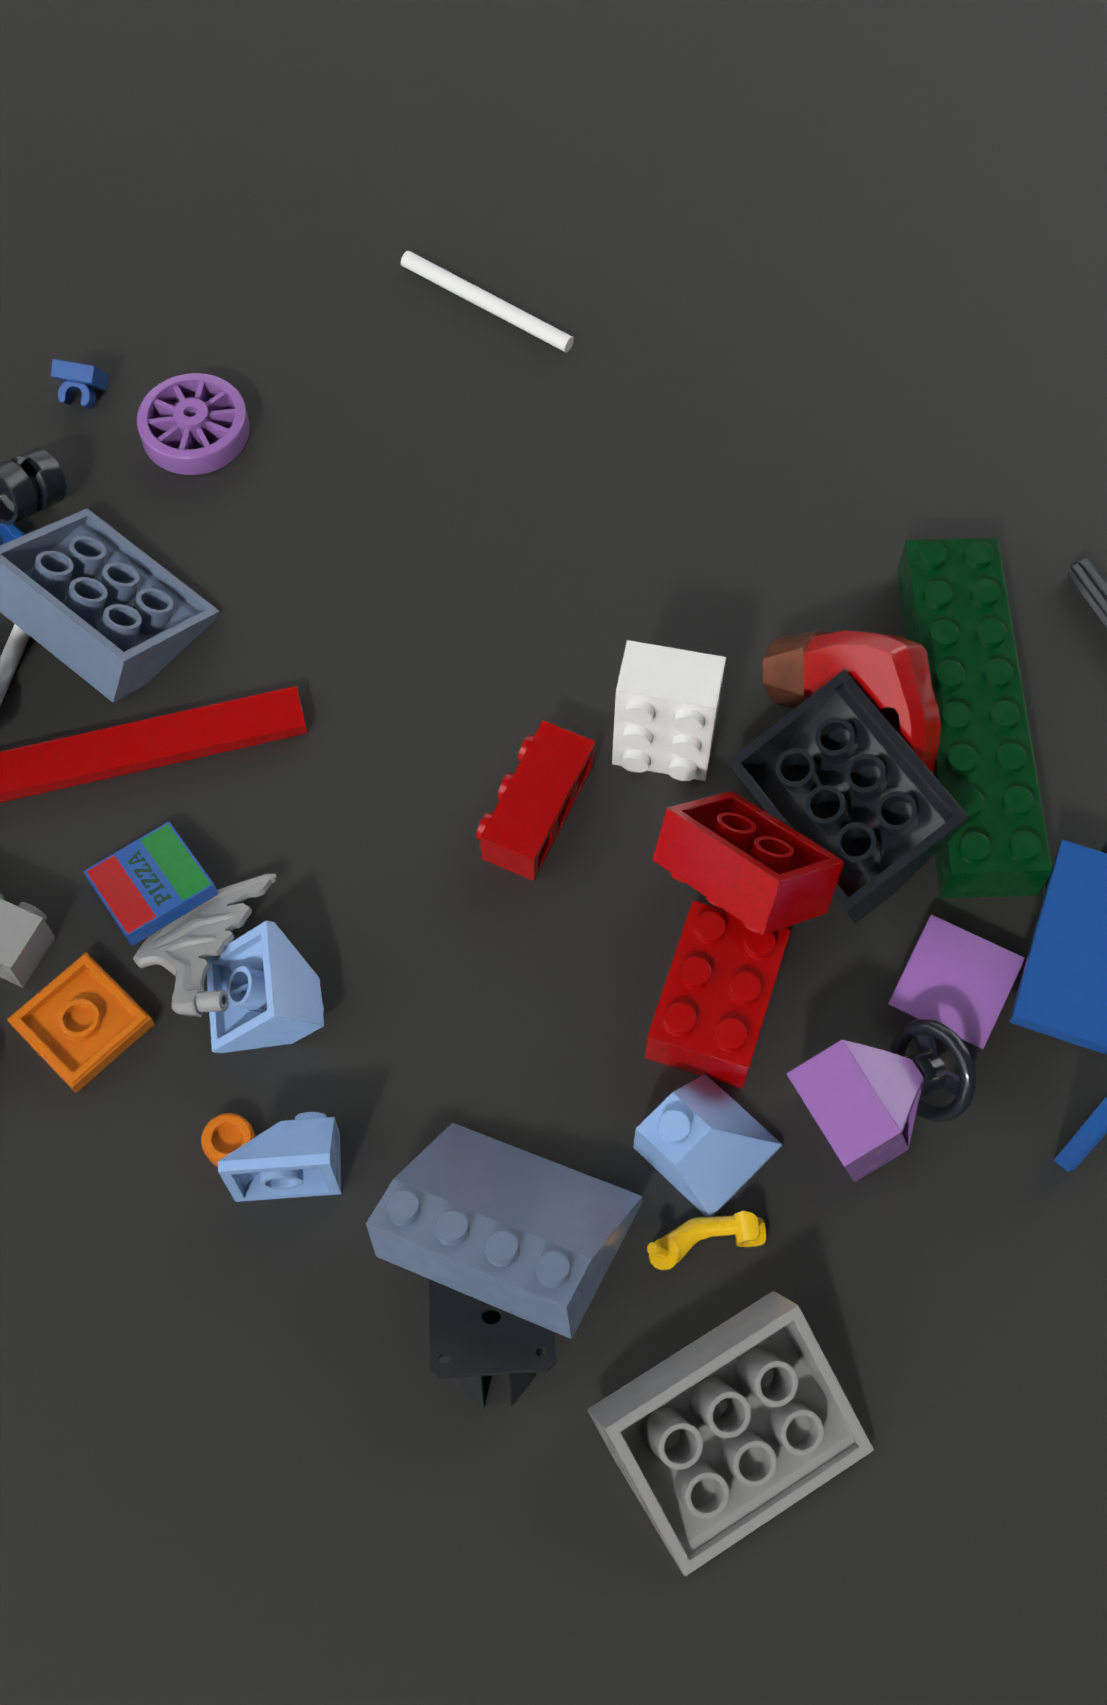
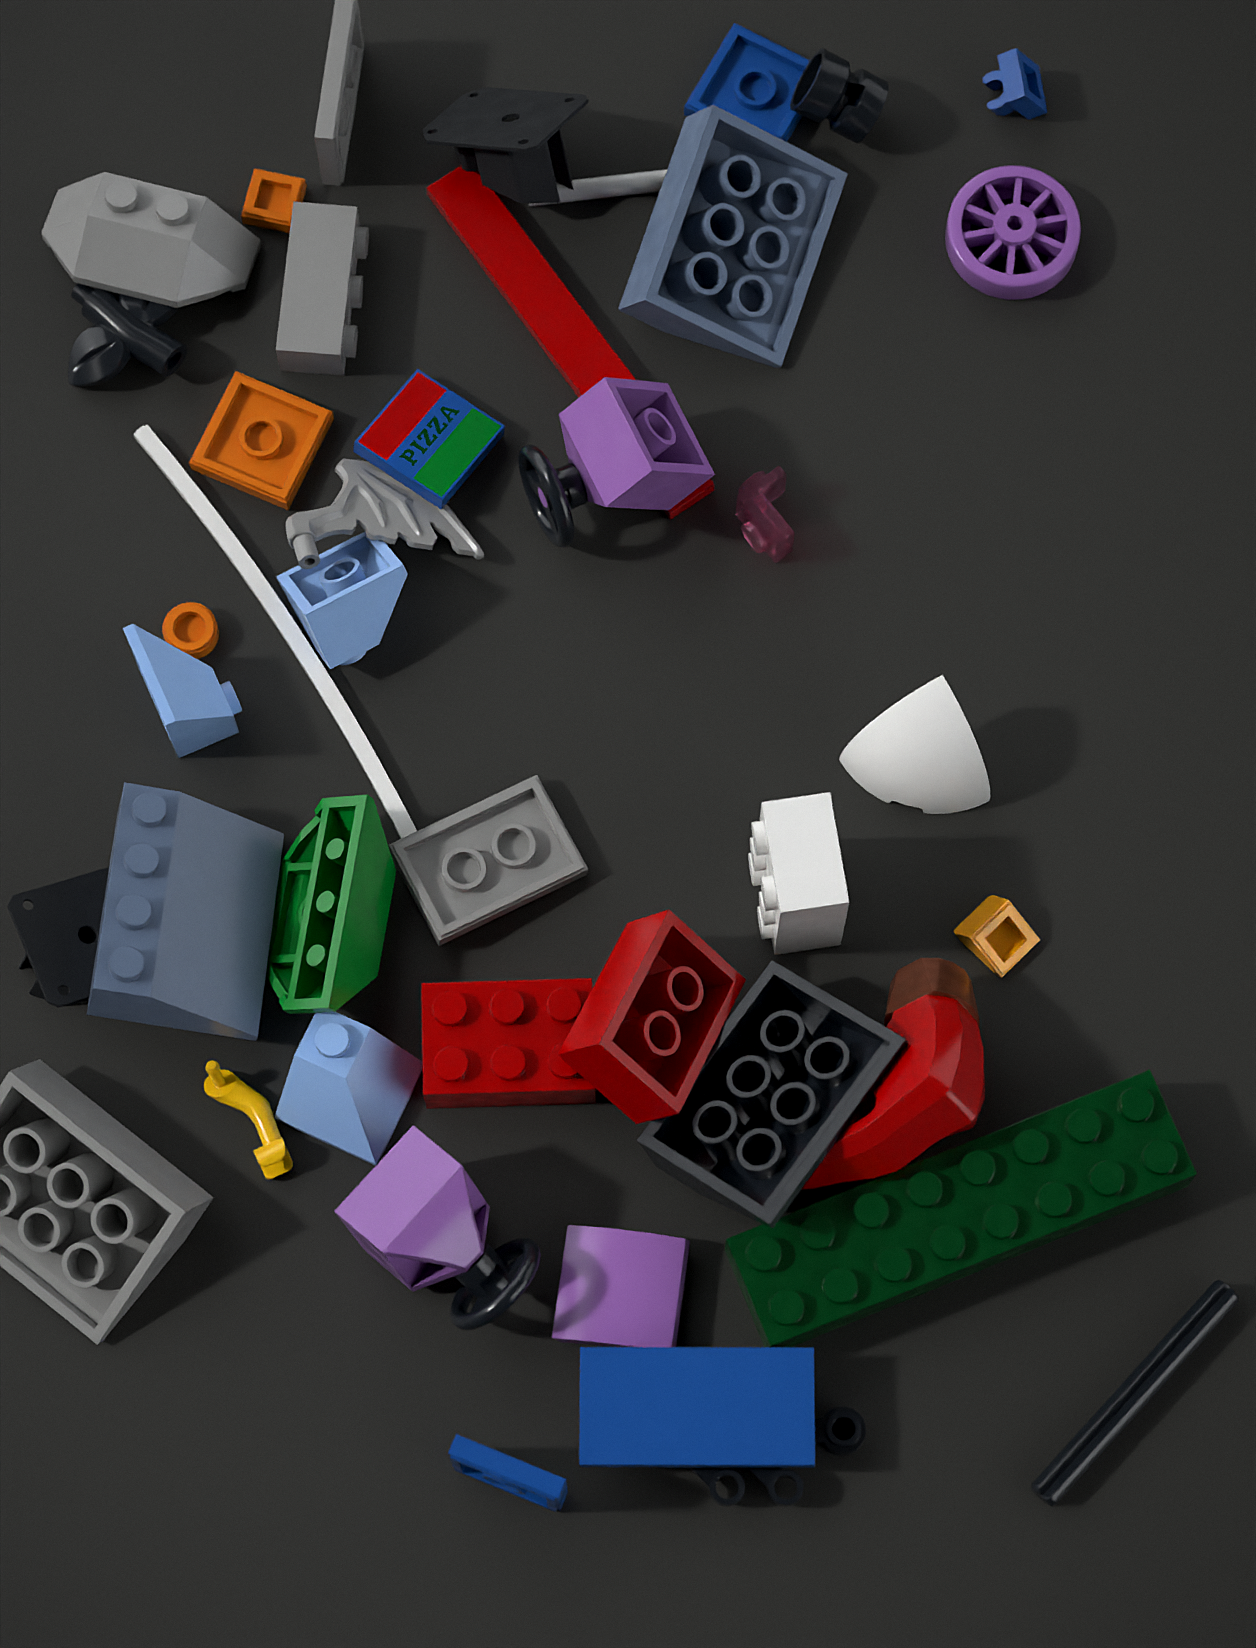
camera: 70 degrees right, 10 degrees up
(246, 728) = (623, 451): none -> medium lavender piece
(292, 1052) = (284, 623): none -> white piece
(343, 659) = (762, 523): none -> clear pink bracket
(536, 799) = (669, 782): red brick -> none
(544, 1099) = (331, 907): none -> green wedge
(545, 963) = (487, 860): none -> light grey tile
(592, 610) = (920, 754): none -> white brick
(746, 621) = (997, 934): none -> light orange slope

